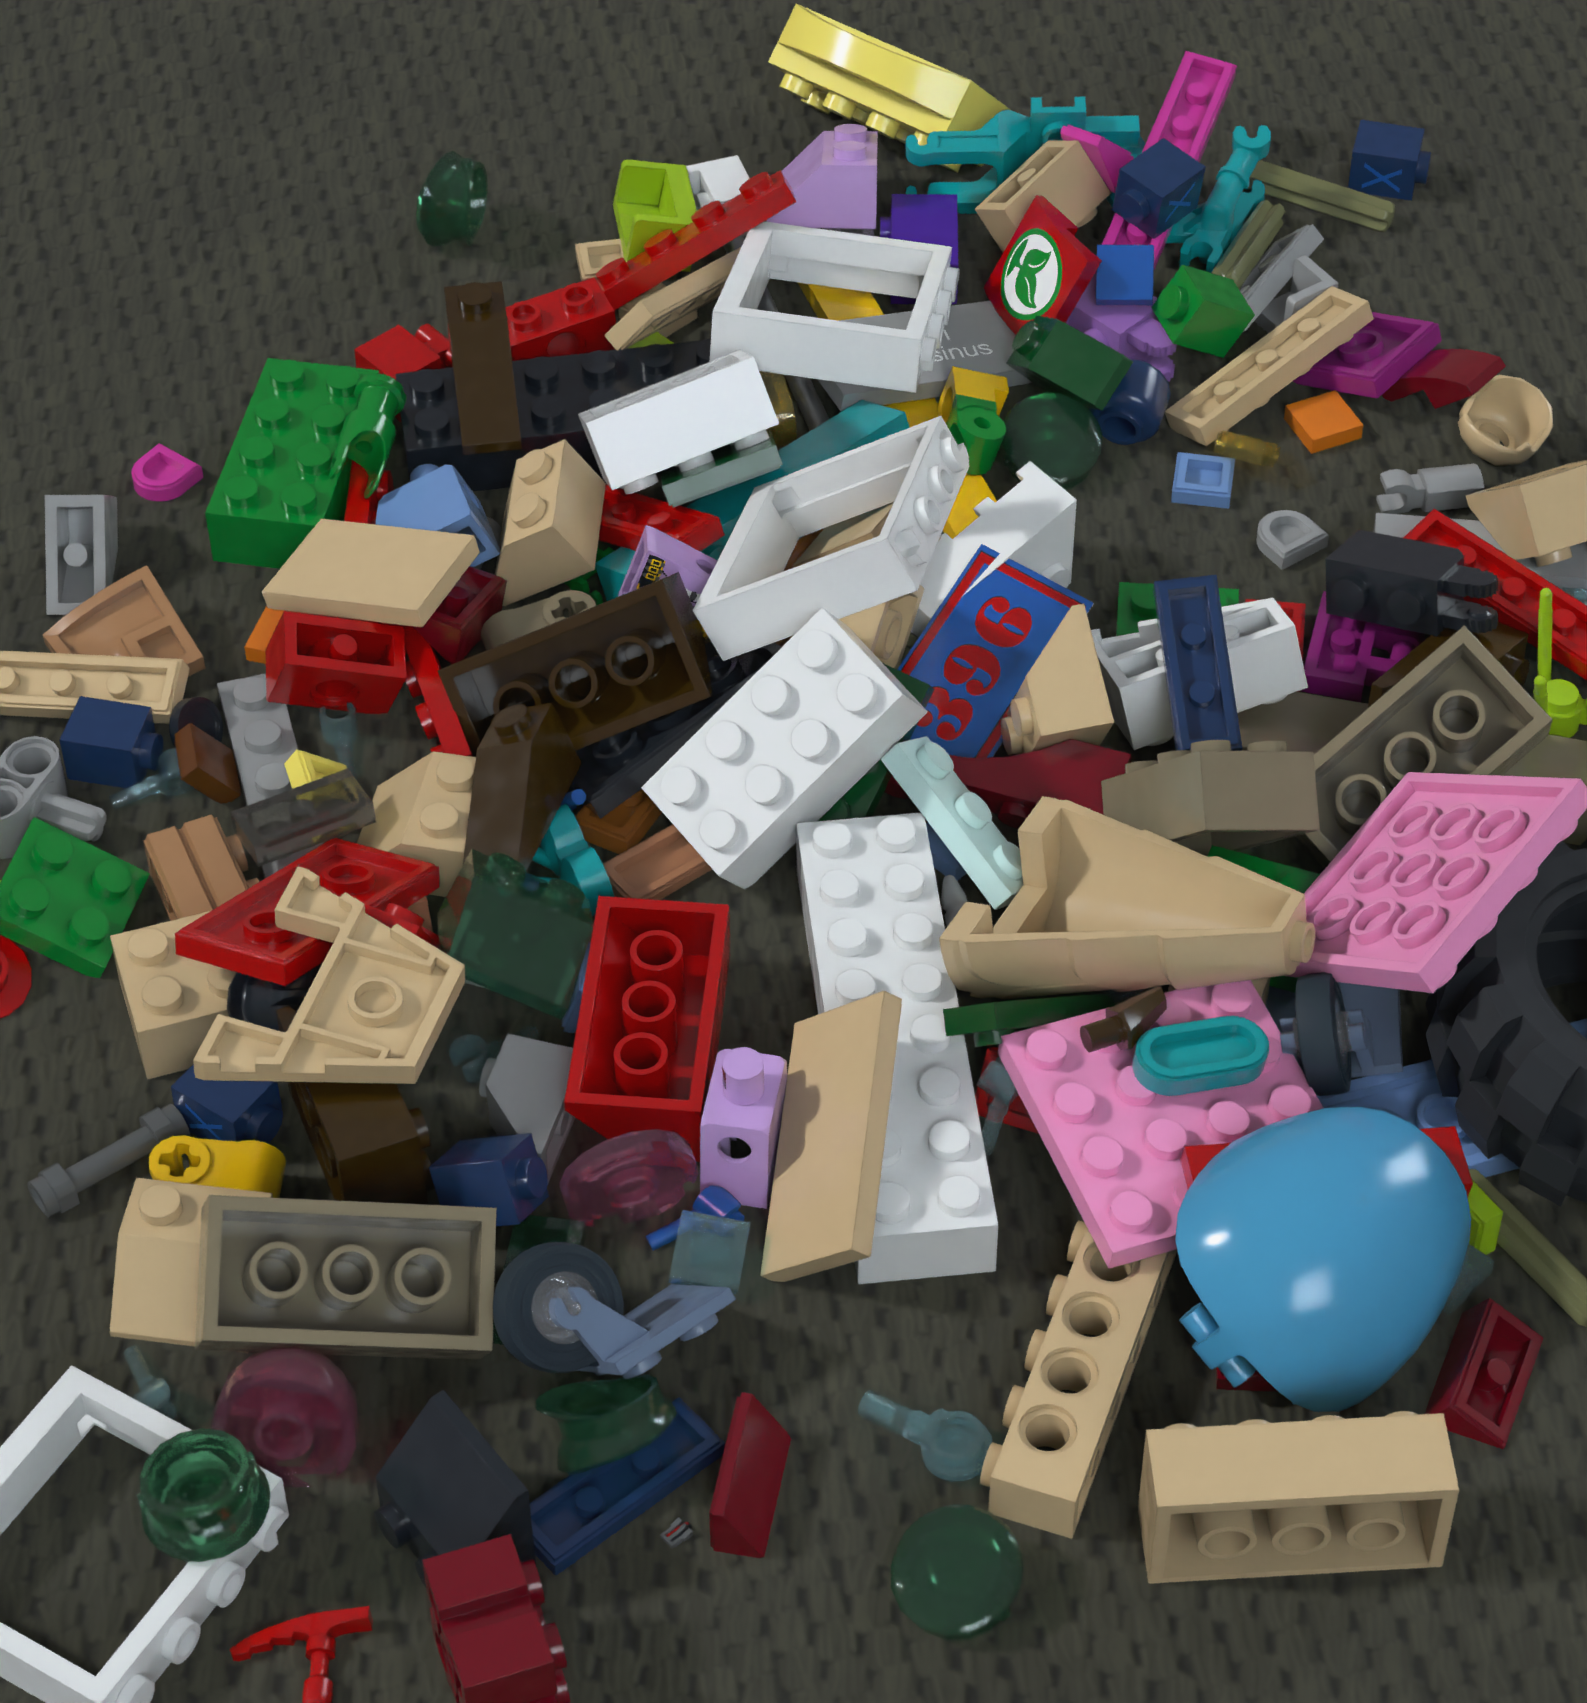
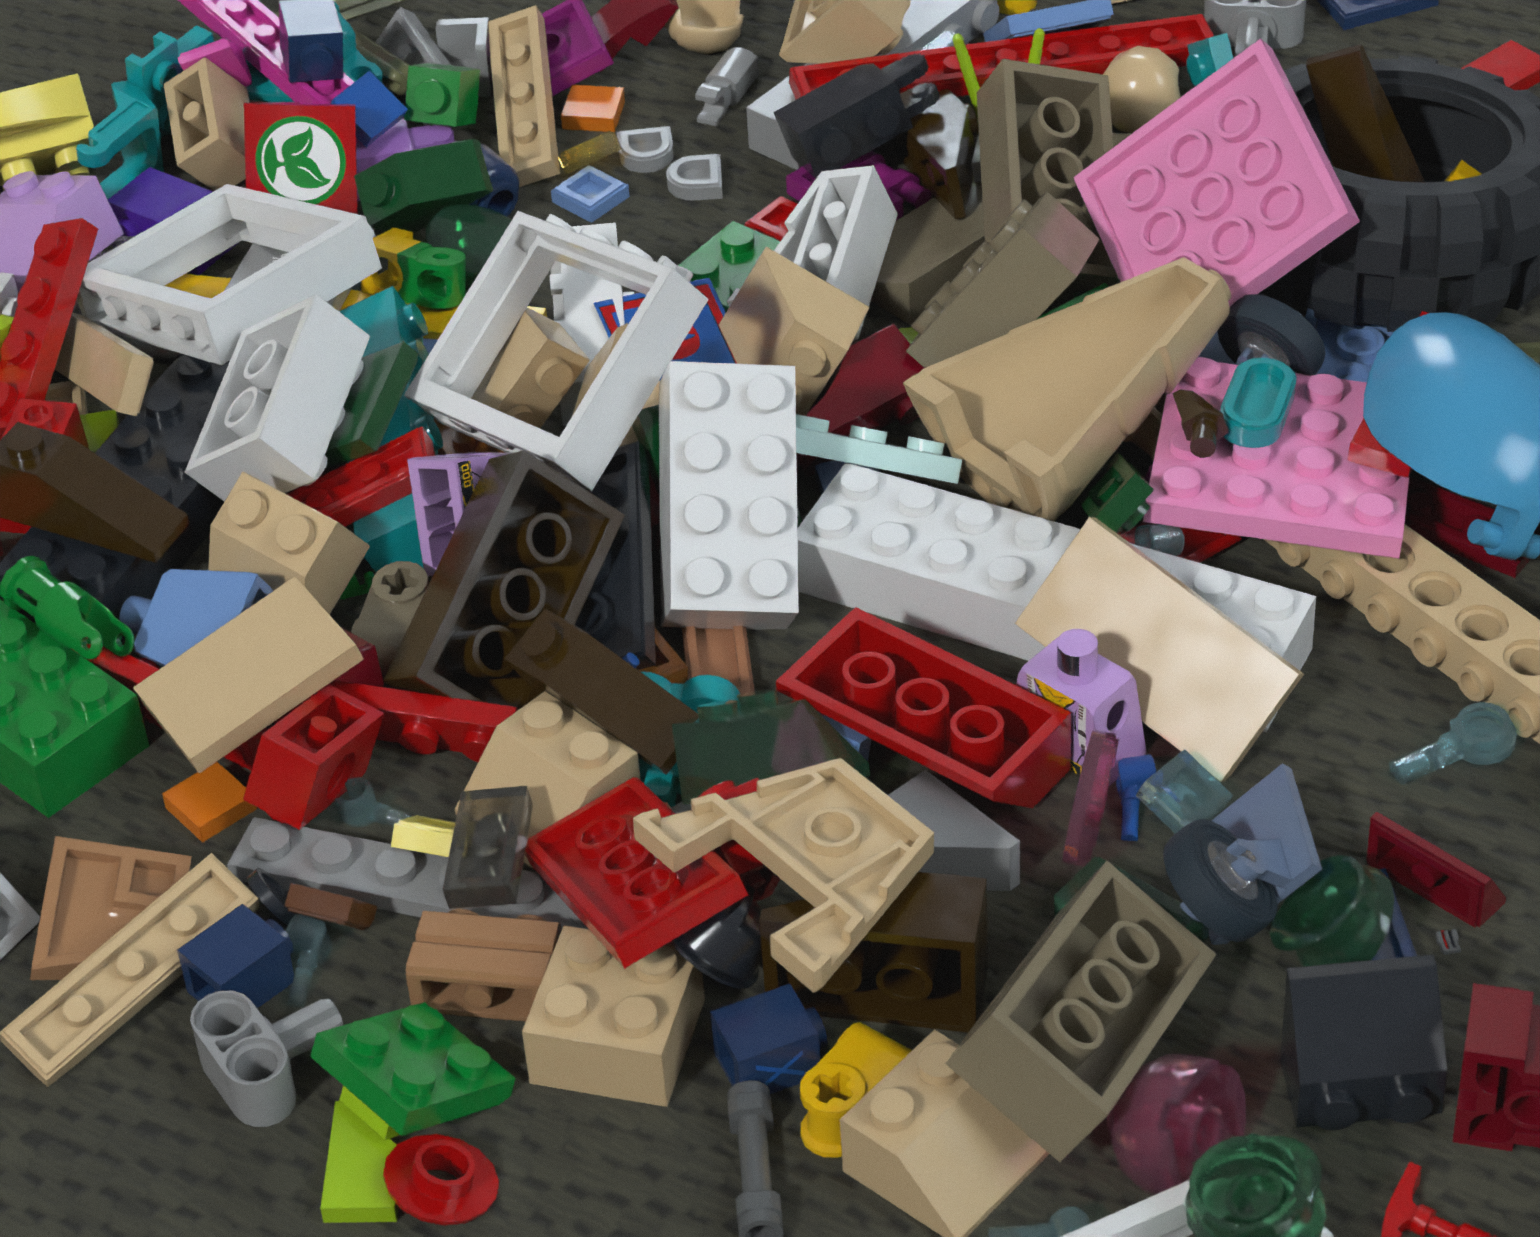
camera: 55 degrees left, 5 degrees down
(493, 1174) = (1024, 886): dark blue brick -> none
(1196, 661) = (863, 235): dark blue tile -> none
(1299, 484) = (646, 149): none -> light grey tile

